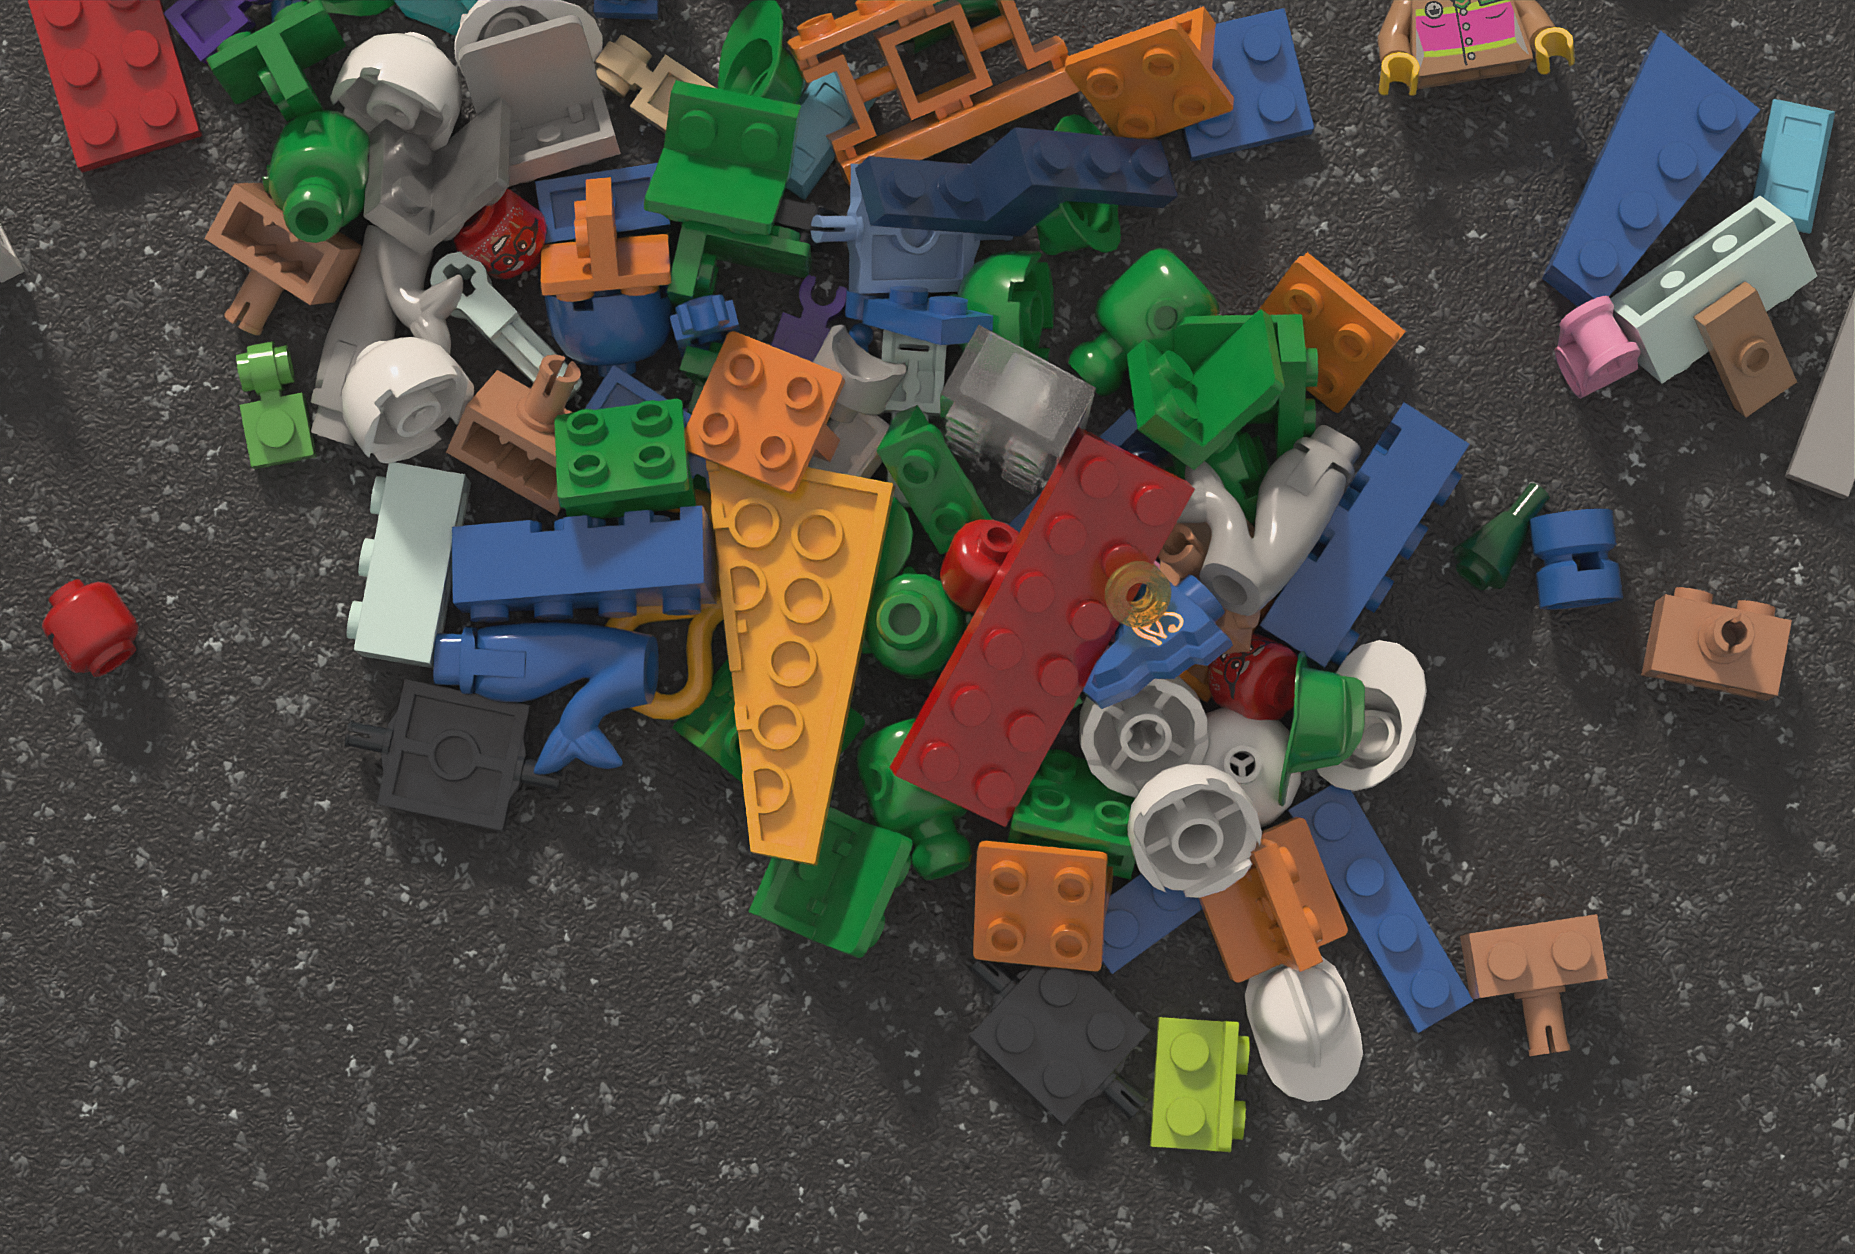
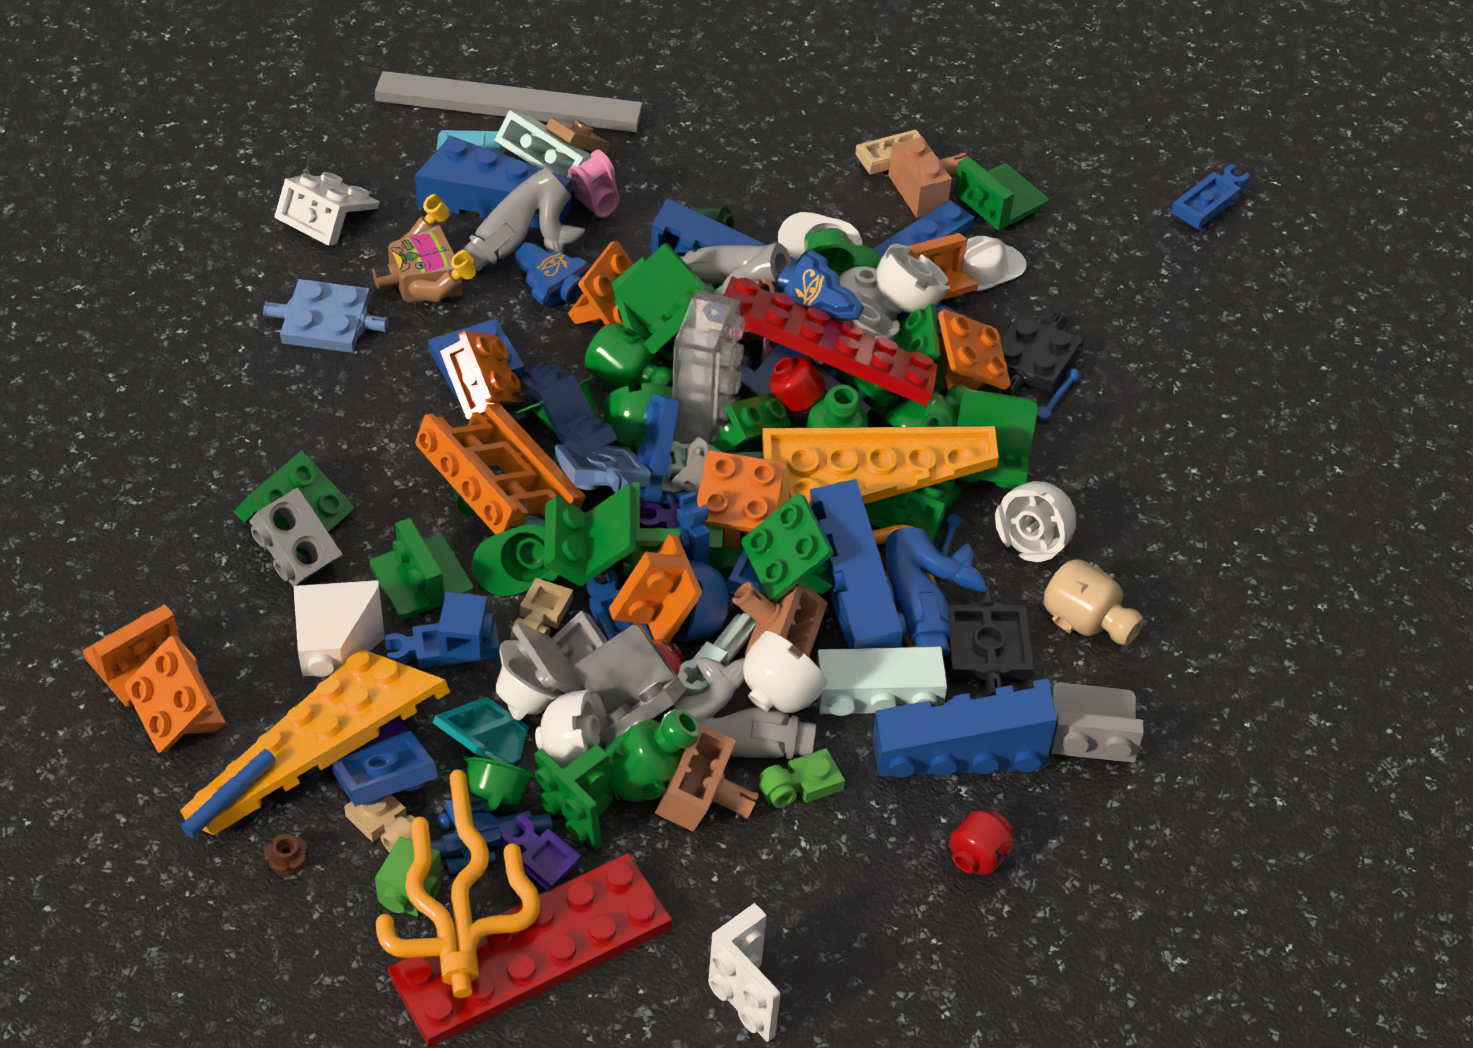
camera: 105 degrees left, 35 degrees down
(268, 867) = (1096, 722): none -> light grey bracket
(274, 654) = (967, 734): none -> blue wedge
(486, 932) = (1089, 602): none -> tan piece
(658, 903) = (1036, 520): none -> white cylinder
(718, 781) = (952, 523): none -> blue hinge
(926, 1009) = (1044, 413): none -> blue hinge
(1147, 609) = (799, 287): clear yellow plate -> none
(1197, 1084) = (1036, 292): lime bracket -> none
(1407, 243) = (551, 275): none -> blue rock
(1472, 1103) = (997, 194): none -> green bracket
(1516, 182) = (510, 220): none -> light grey piece
(1573, 536) = (713, 184): blue wheel -> none
(1628, 934) = (876, 153): none -> tan plate
(1717, 645) = (734, 132): nougat brick -> none

